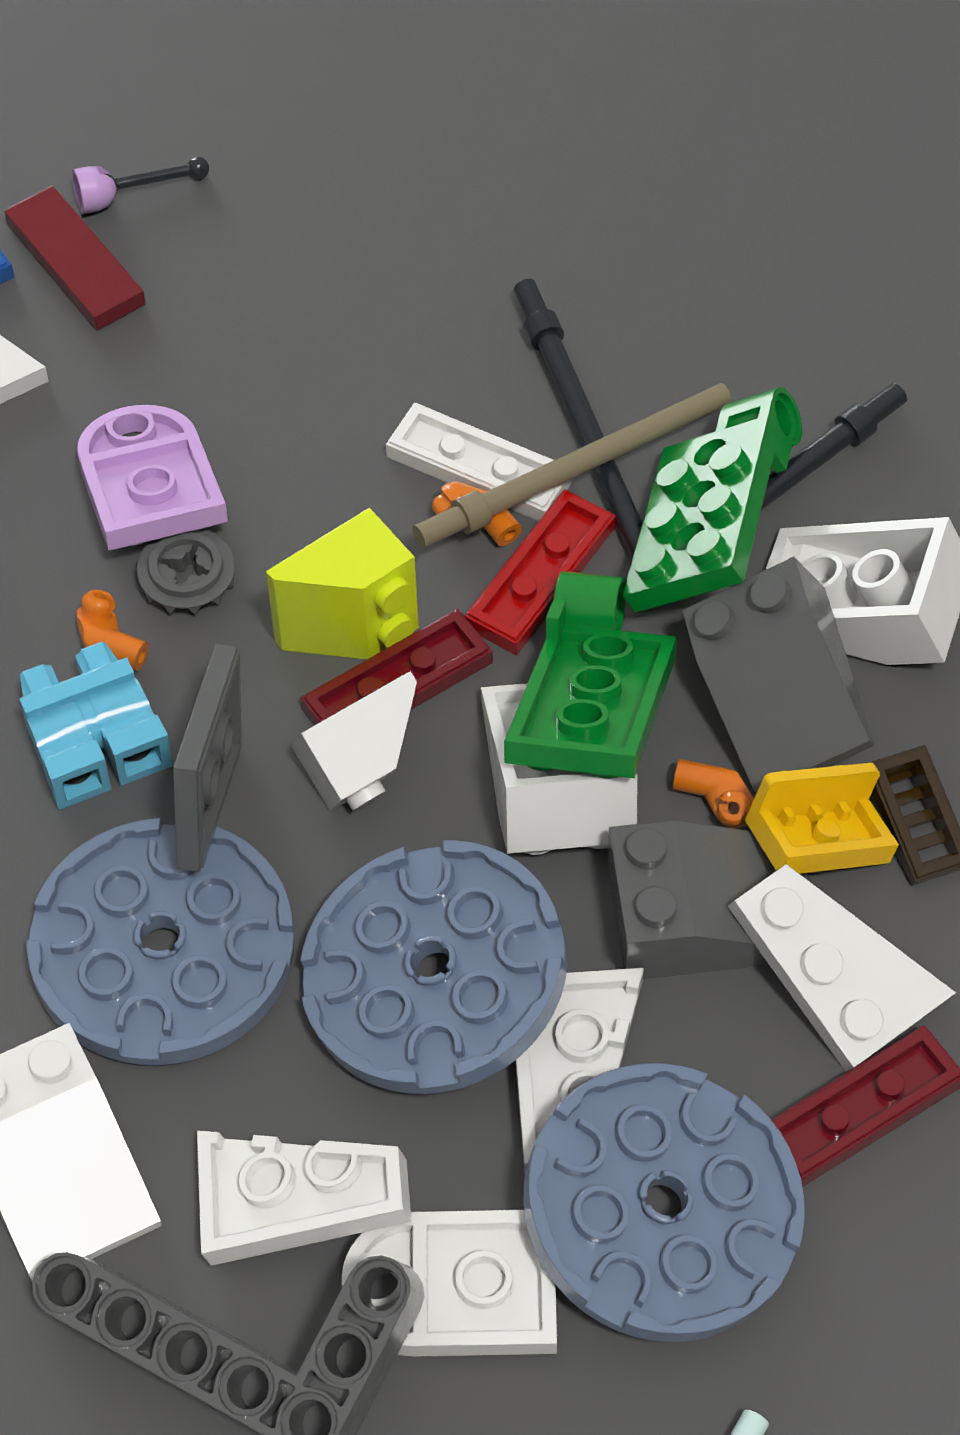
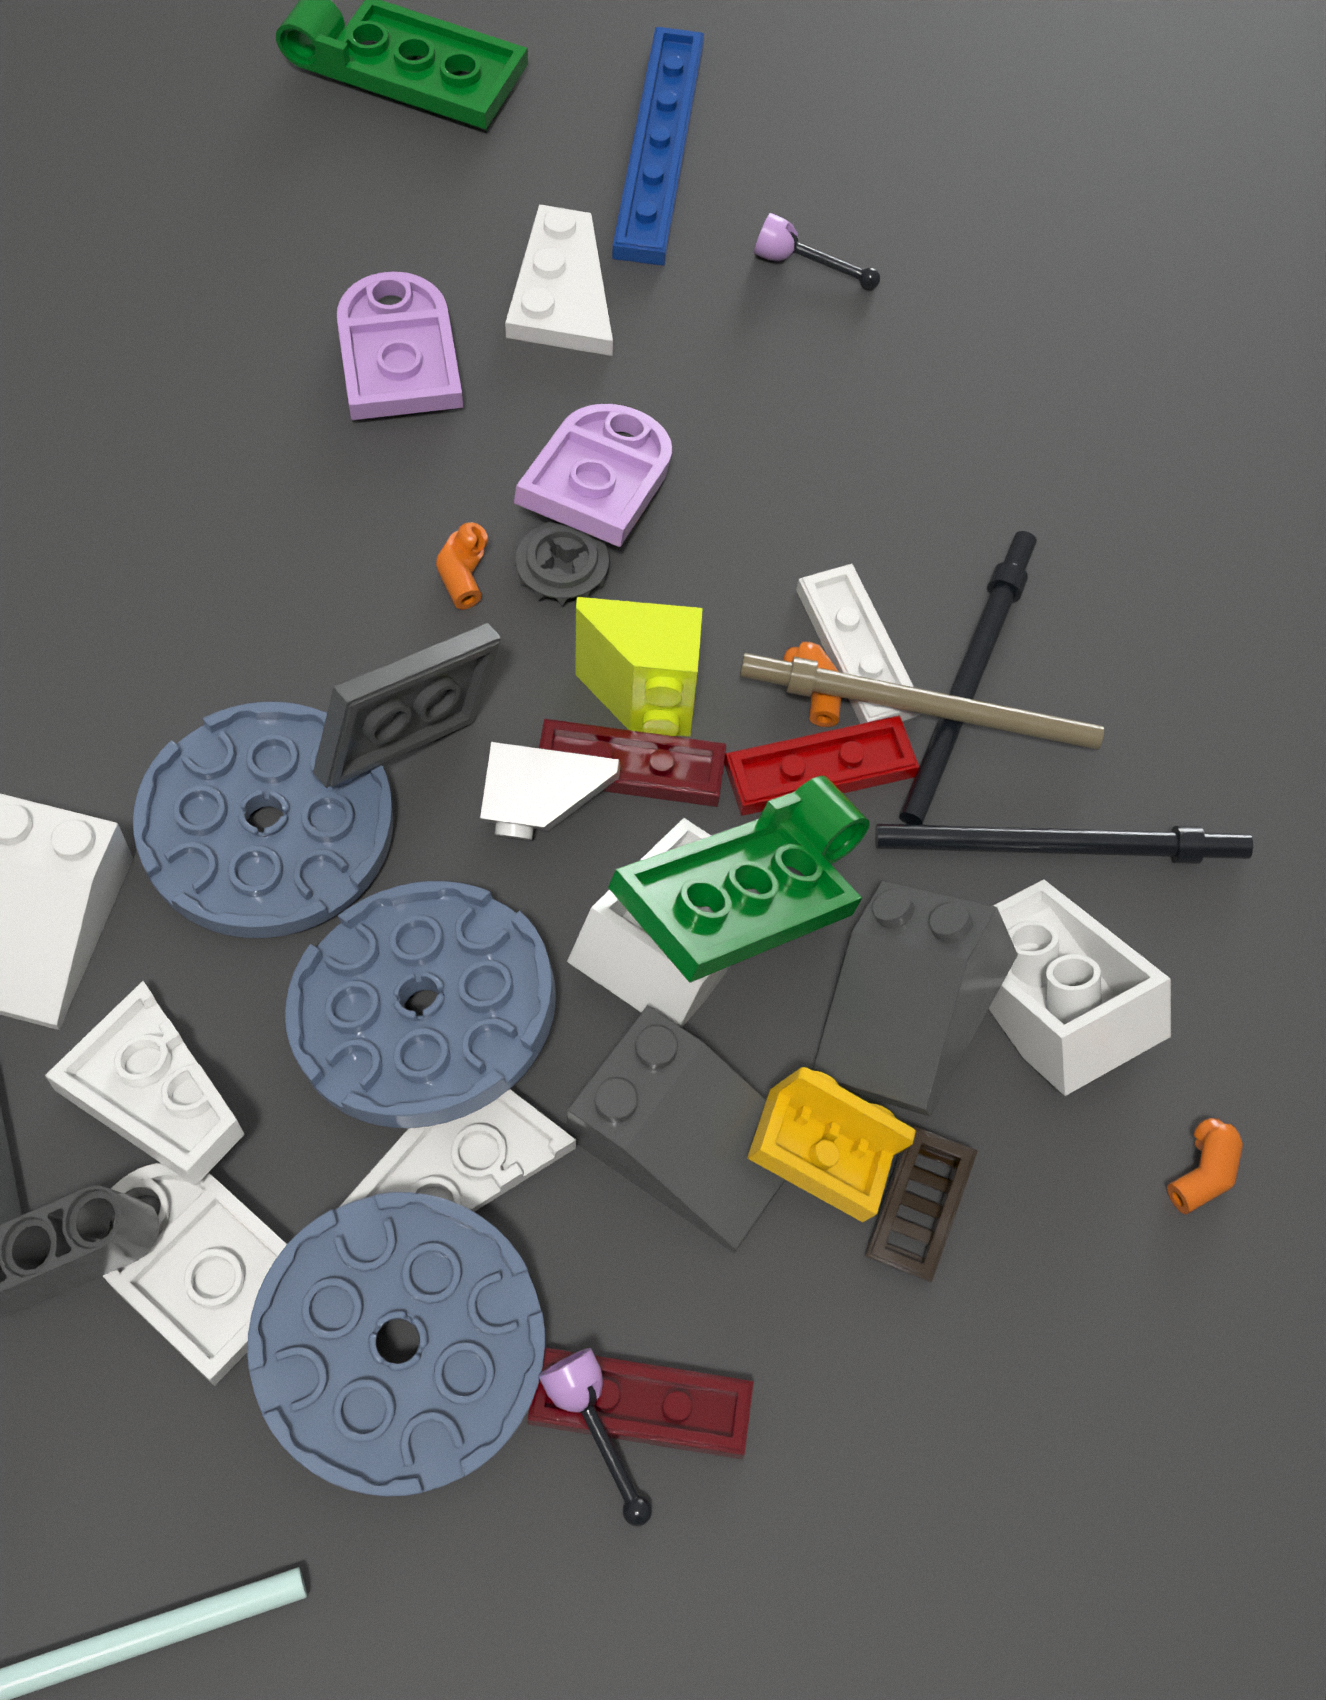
camera: 35 degrees right, 5 degrees up
(75, 257) = (715, 280): dark red tile -> none
(88, 714) = (372, 614): medium azure hips -> none
(710, 501) = (997, 809): green hinge -> none
(721, 788) = (788, 1044): orange arm -> none
(815, 1123) = (575, 1387): none -> hinge
(835, 966) = (723, 1273): white wing -> none

